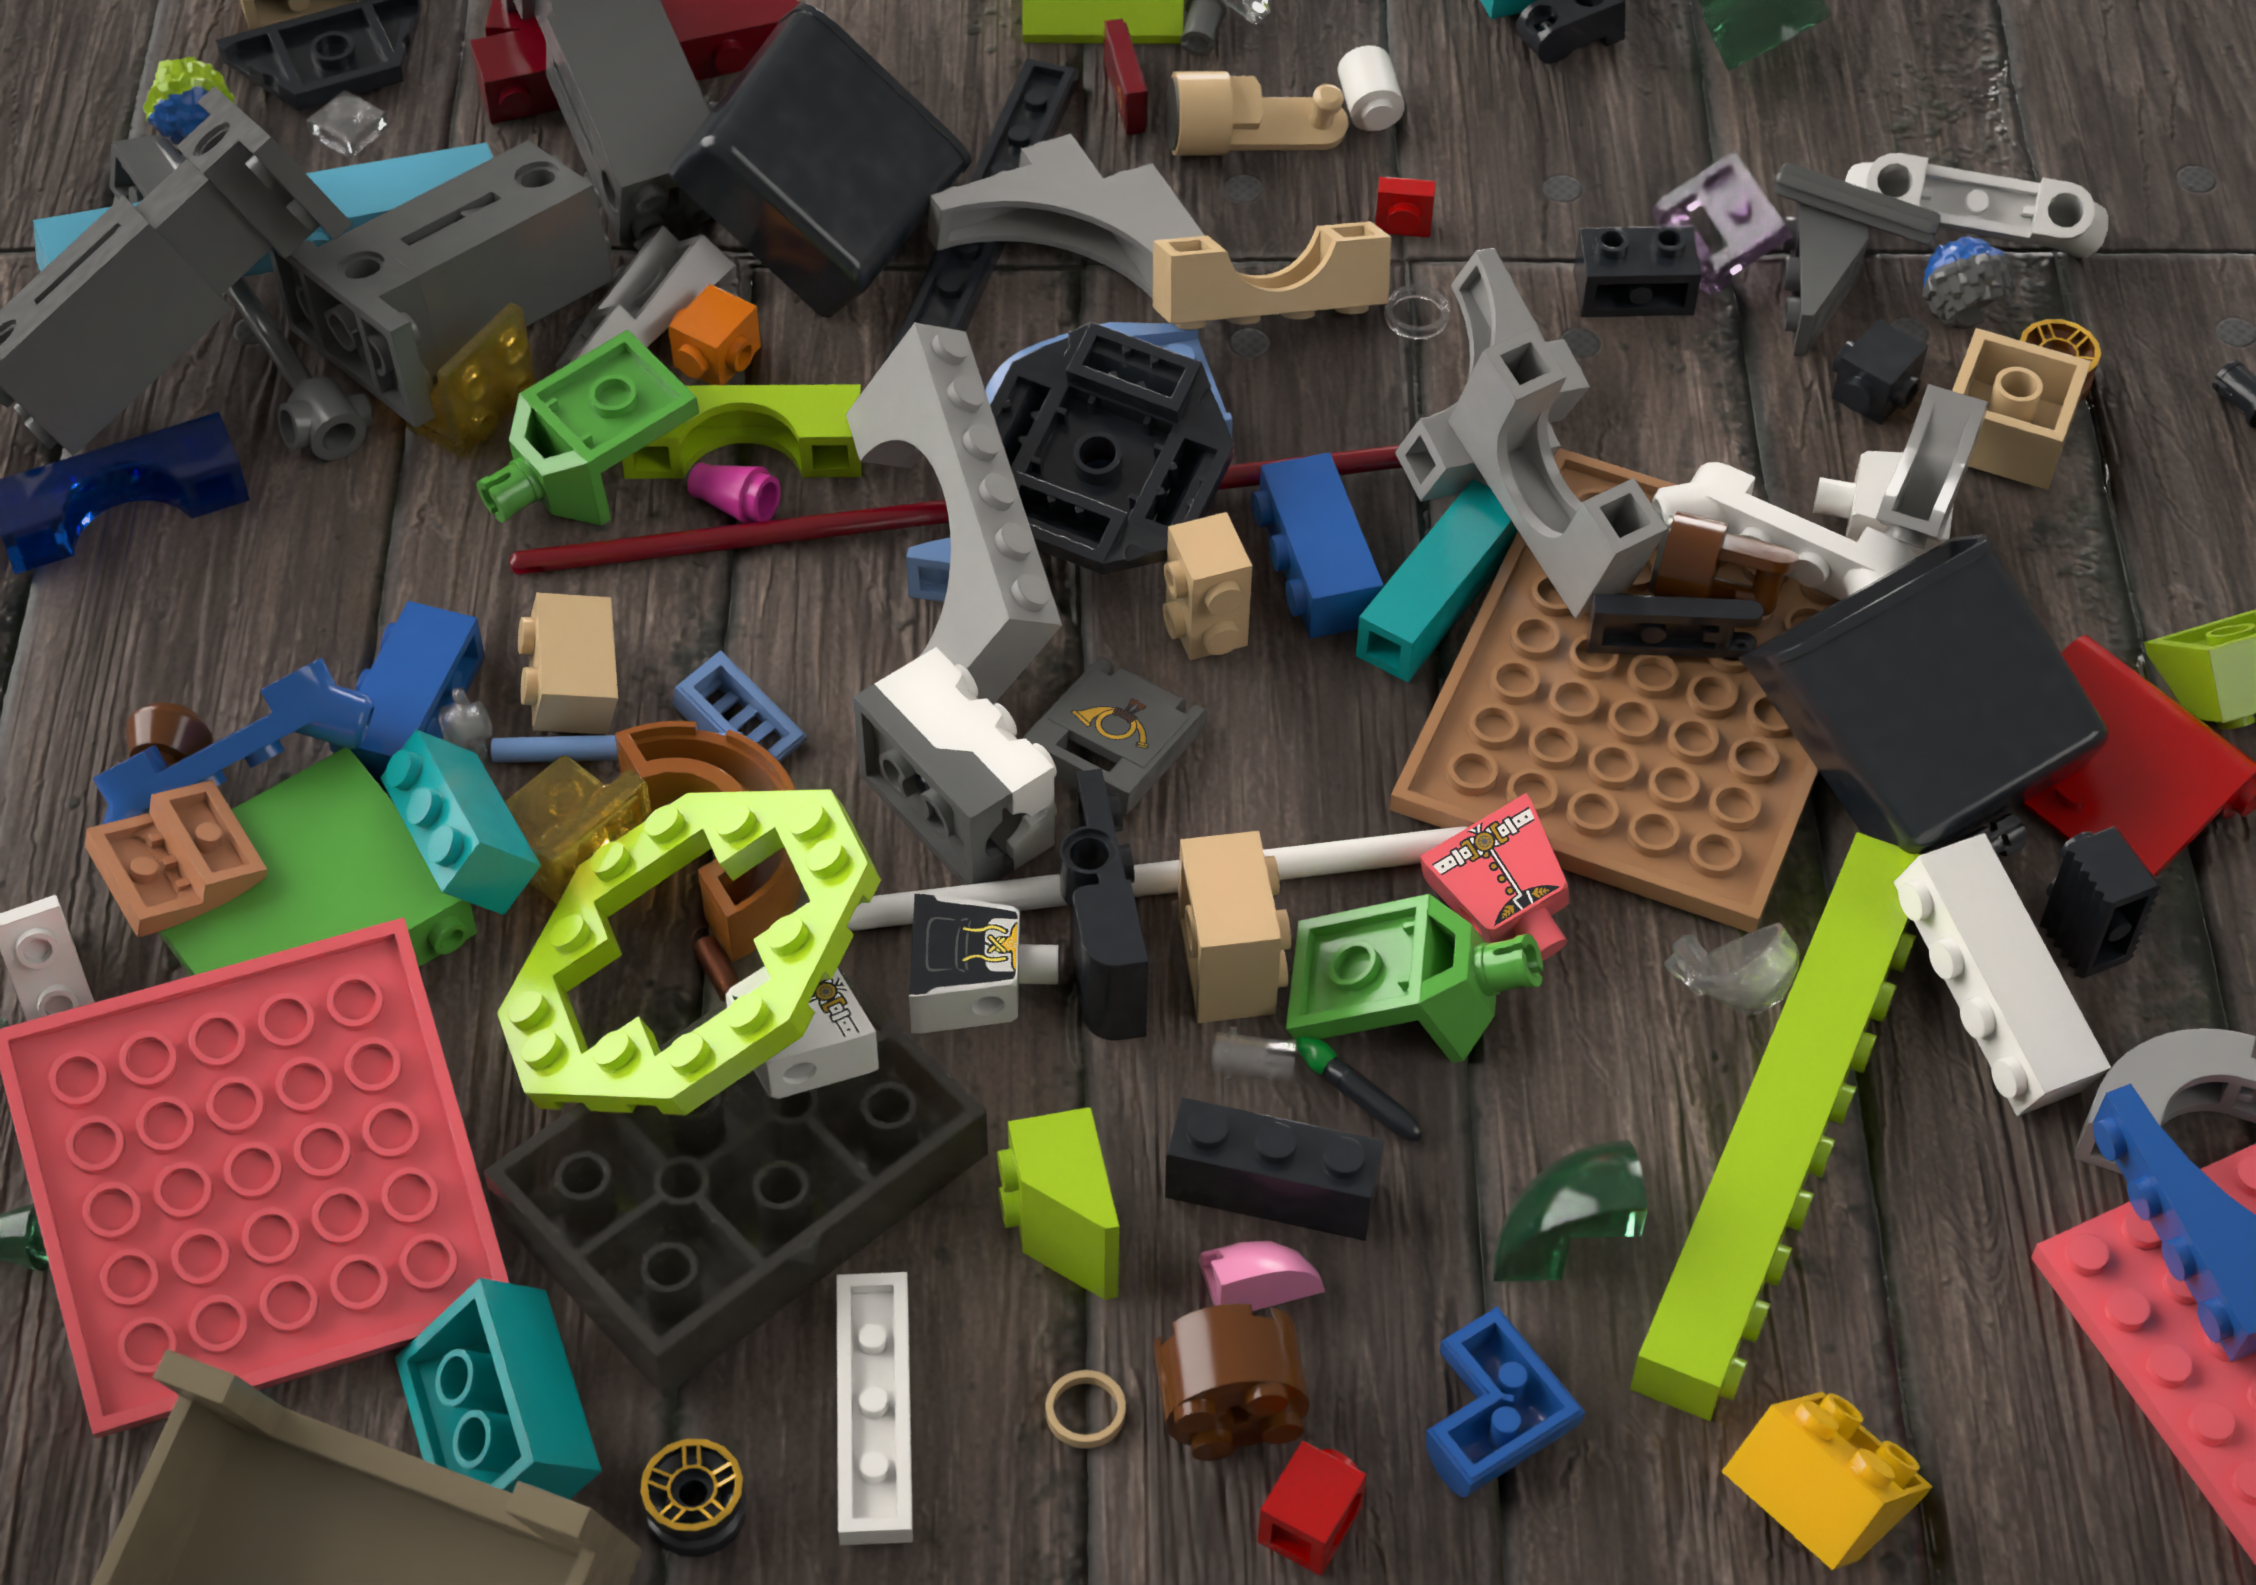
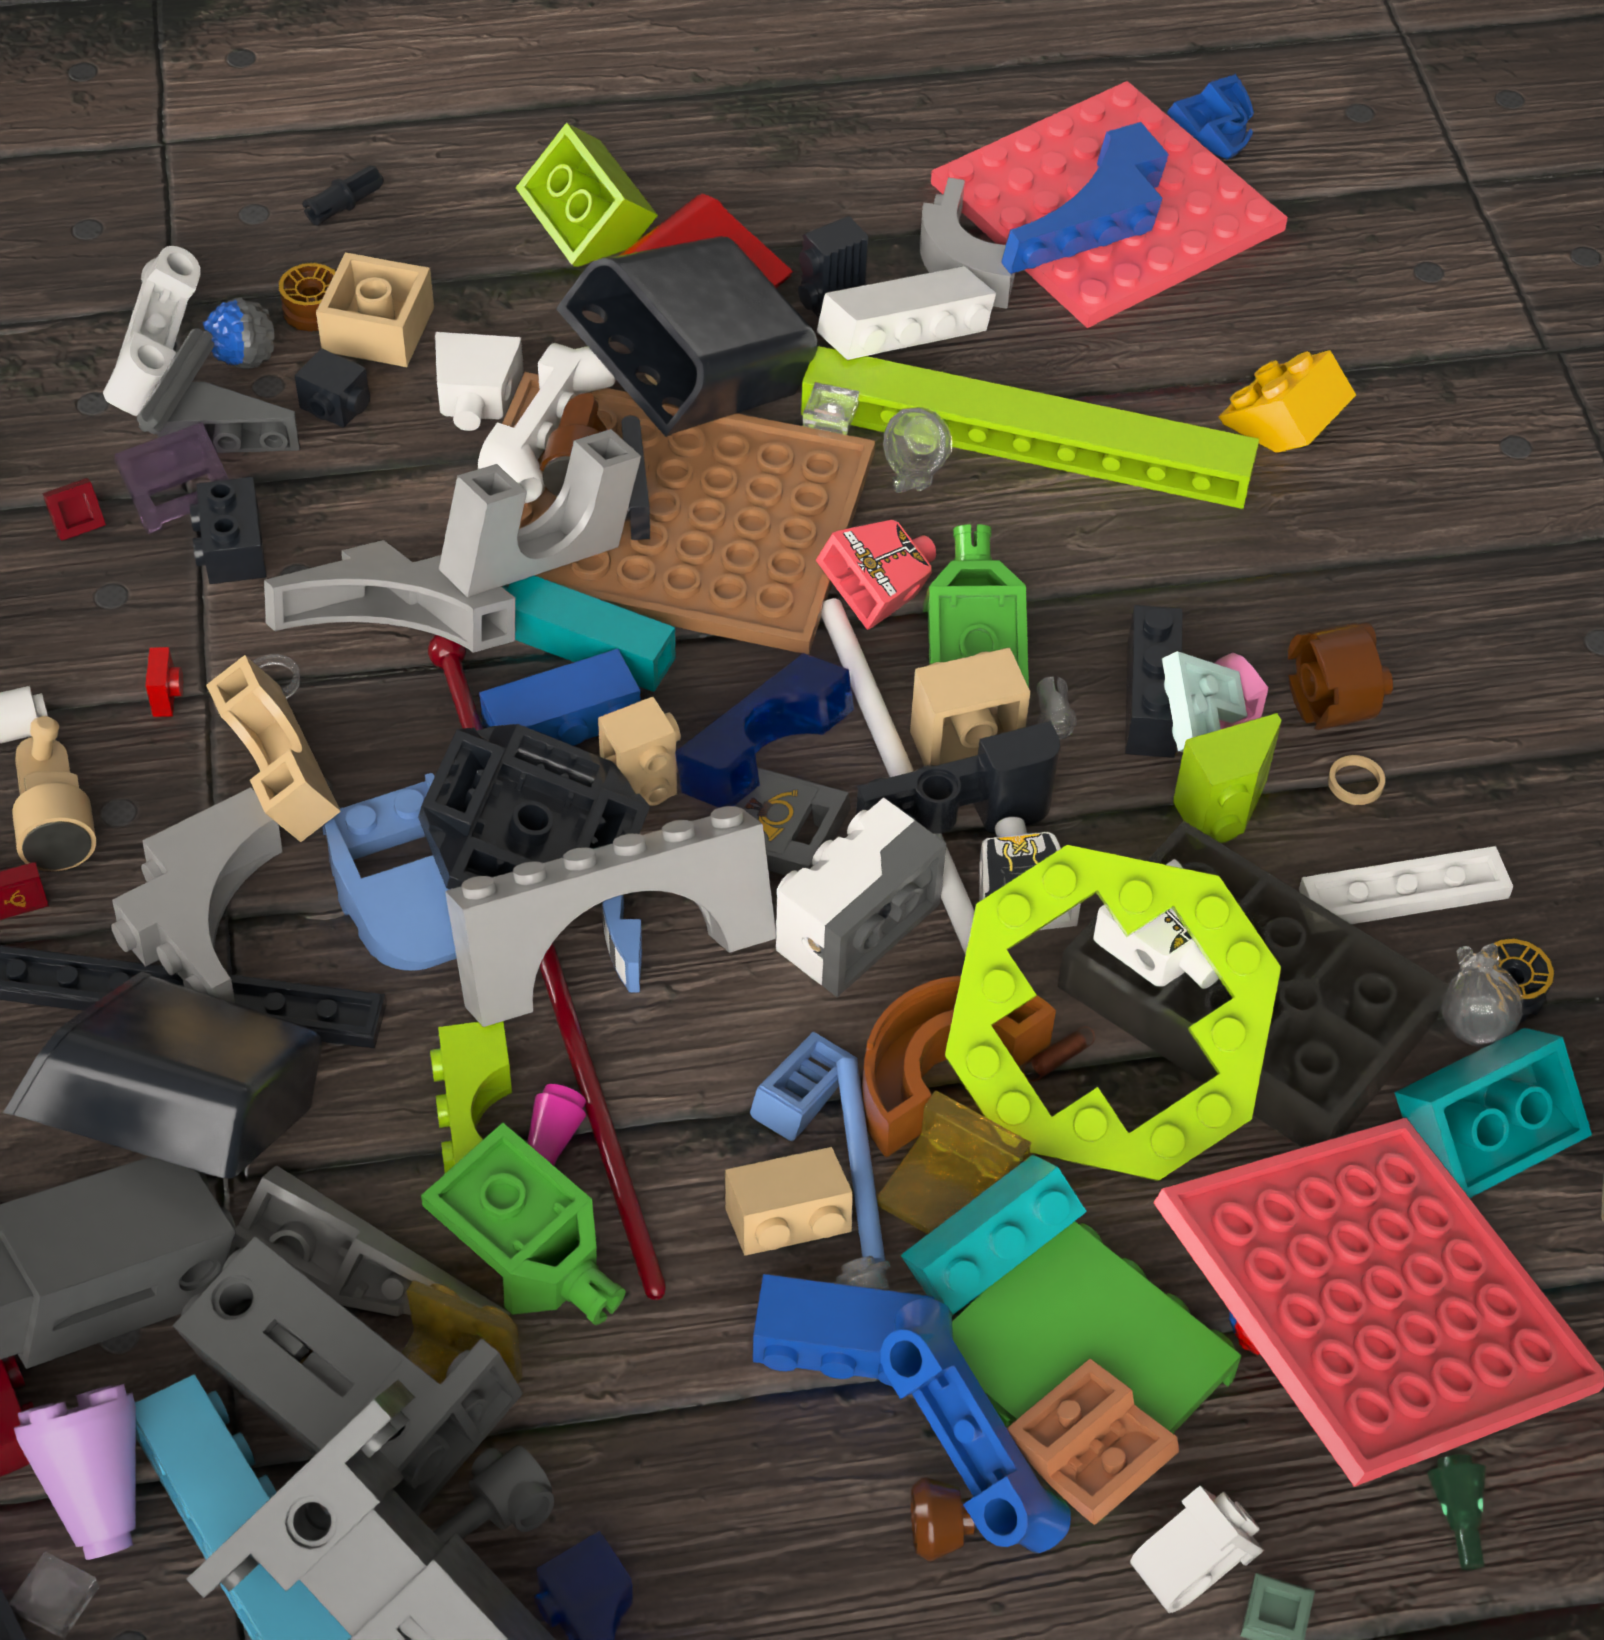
camera: 100 degrees left, 0 degrees up
(442, 106) = (87, 1465): none -> lavender cone
(652, 1415) = (1482, 999): none -> clear piece
(714, 336) = (365, 1173): orange brick -> none
(1190, 666) = (799, 699): none -> clear blue arch
(1198, 1160) = (1201, 696): none -> light aqua plate
(1312, 1507) = (1402, 640): red brick -> none
(1325, 1062) = (1061, 651): black piece -> none
(1515, 1409) = (1295, 545): blue brick -> none
(1577, 1196) = (1138, 516): clear green brick -> none
(1681, 143) = (74, 509): none -> dark red tile
(1807, 862) = (831, 408): none -> clear plate
(1932, 466) = (503, 328): light grey arch -> none

